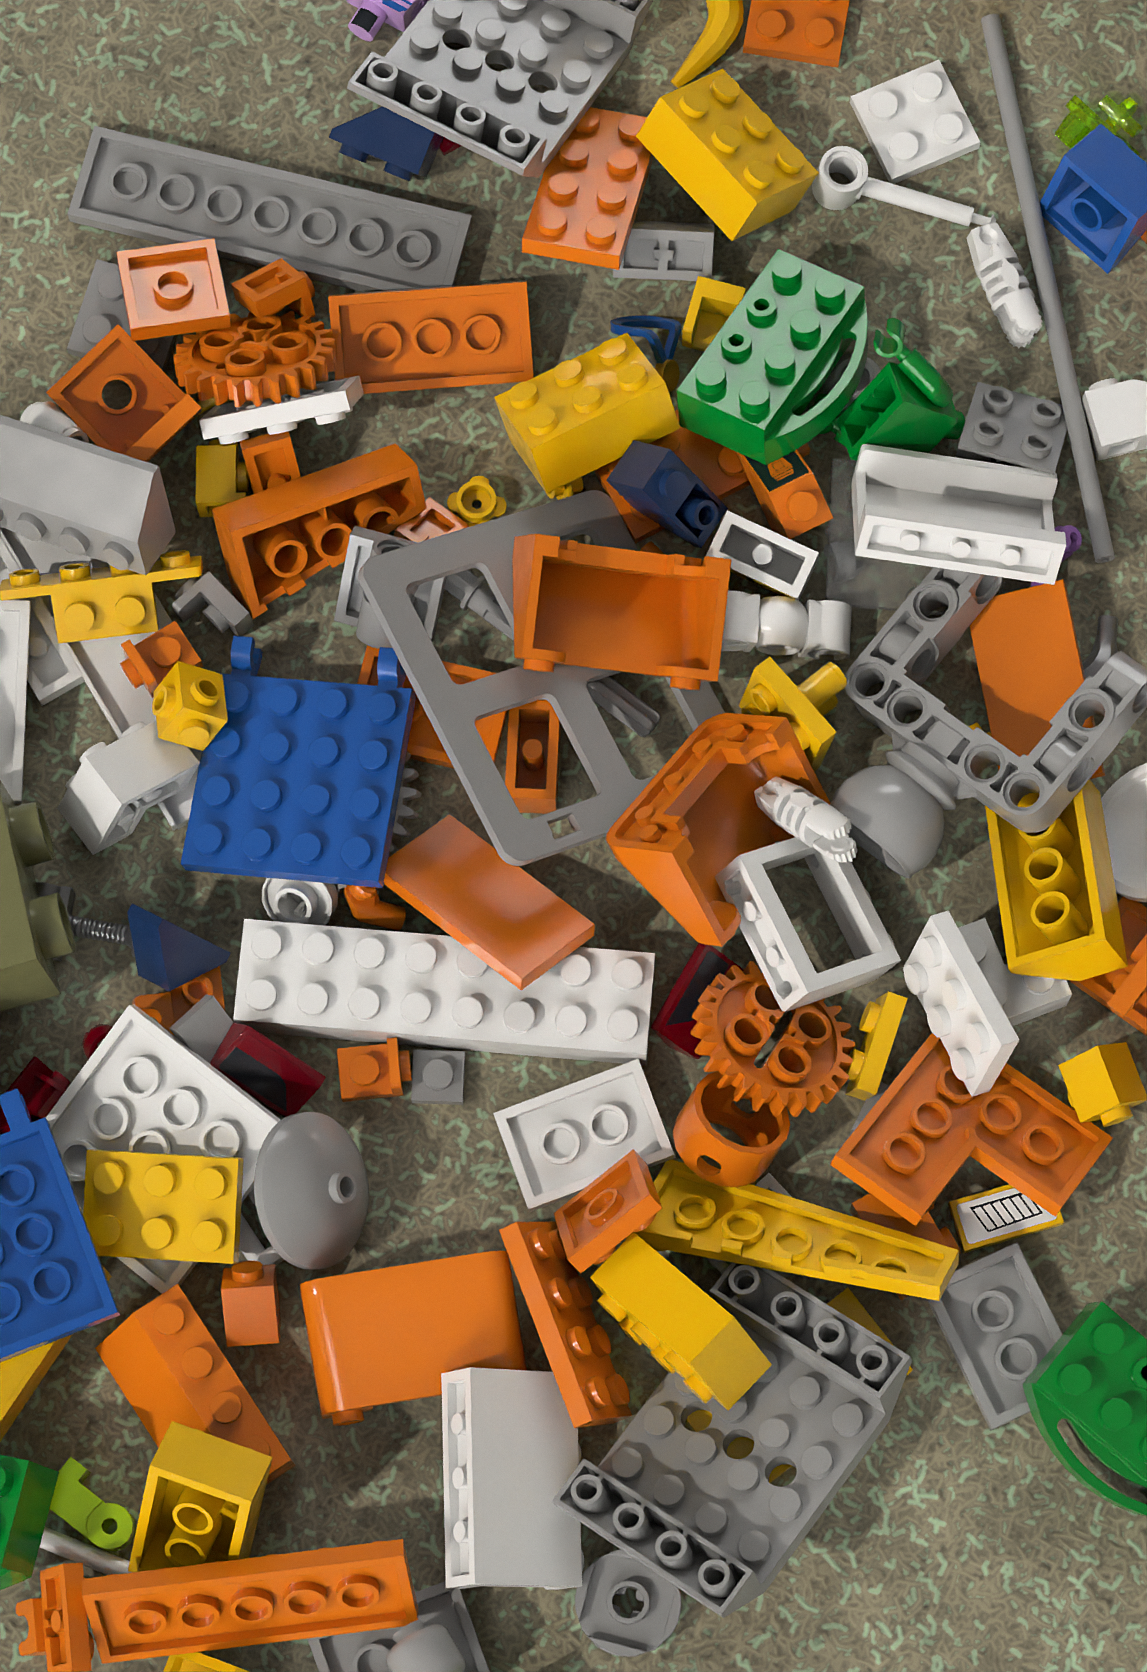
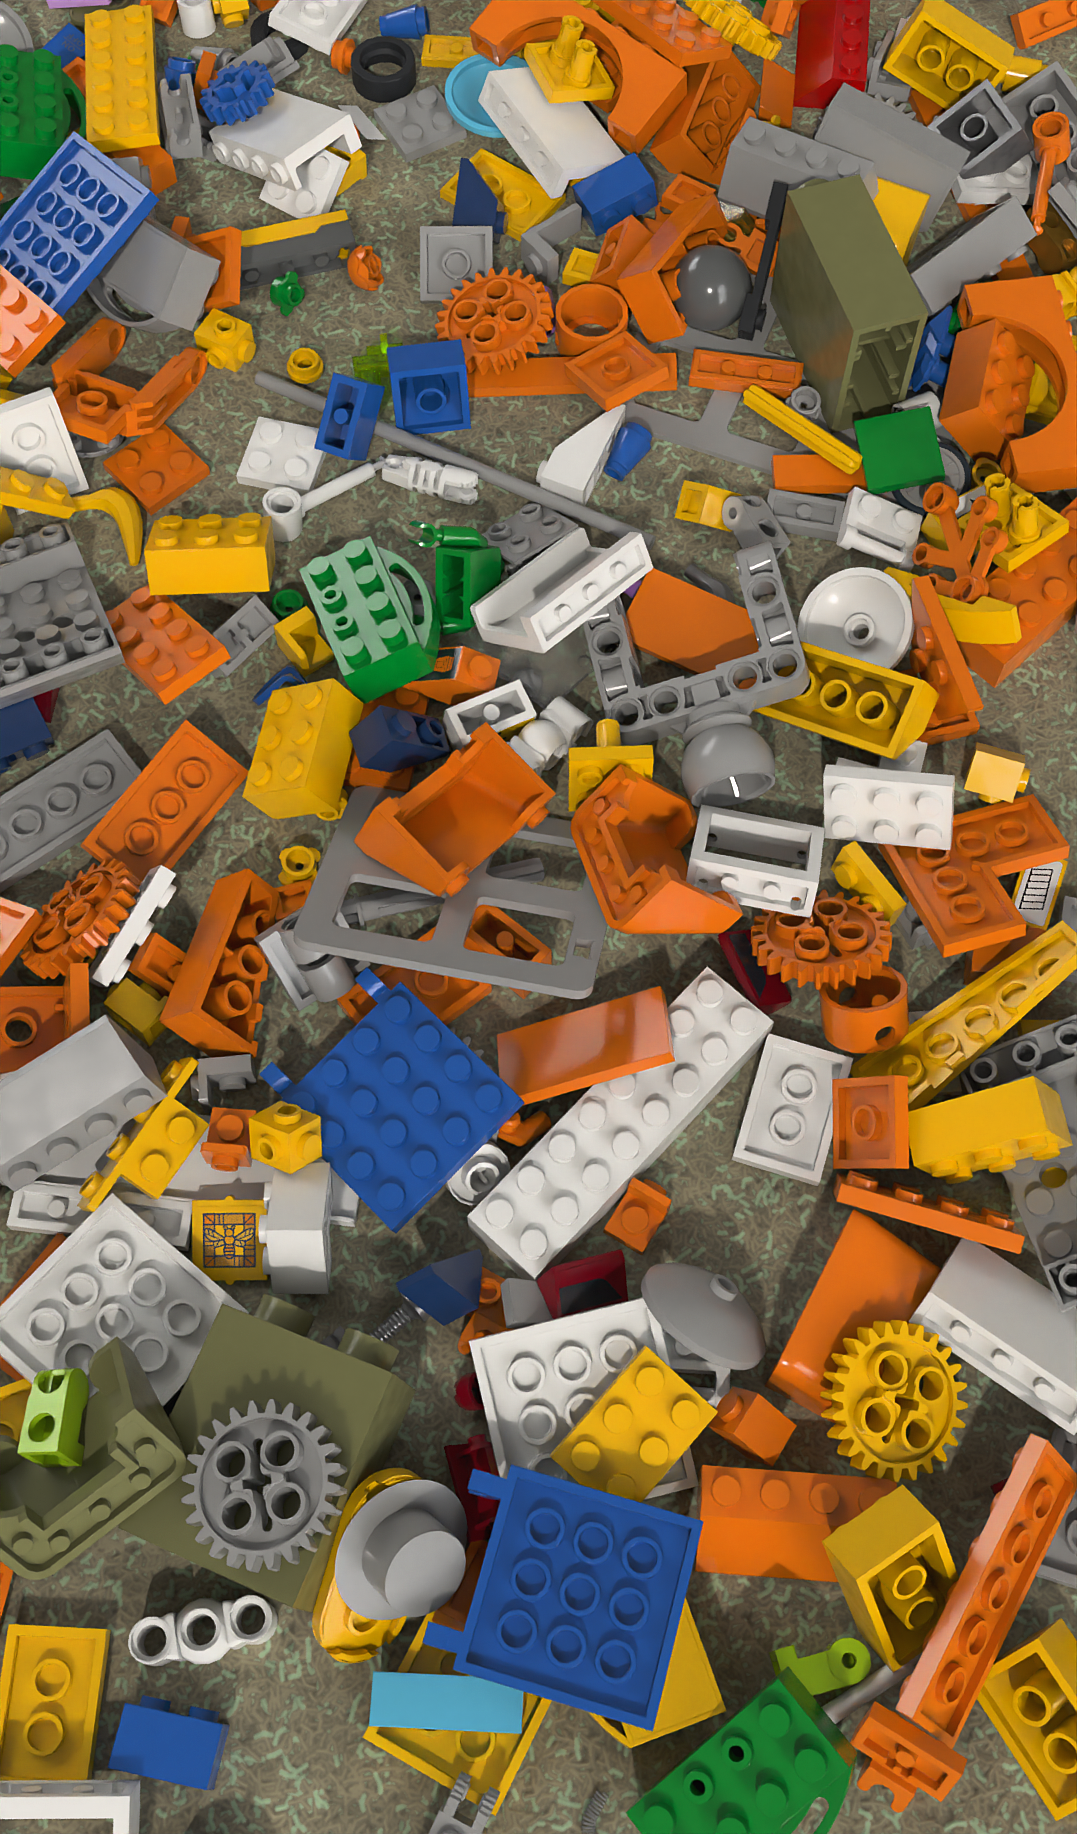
camera: 55 degrees left, 10 degrees down
(71, 726) = (228, 1239): none -> piece
(273, 288) = (44, 875): orange bracket -> none
(375, 1449) = (894, 1400): none -> yellow gear
(438, 1077) = (677, 1175): light grey plate -> none
(741, 258) = (287, 599): none -> green plate
(807, 818) = (693, 805): white hinge -> none
(996, 152) = (349, 417): none -> blue brick
(1043, 40) = (301, 358): none -> yellow plate

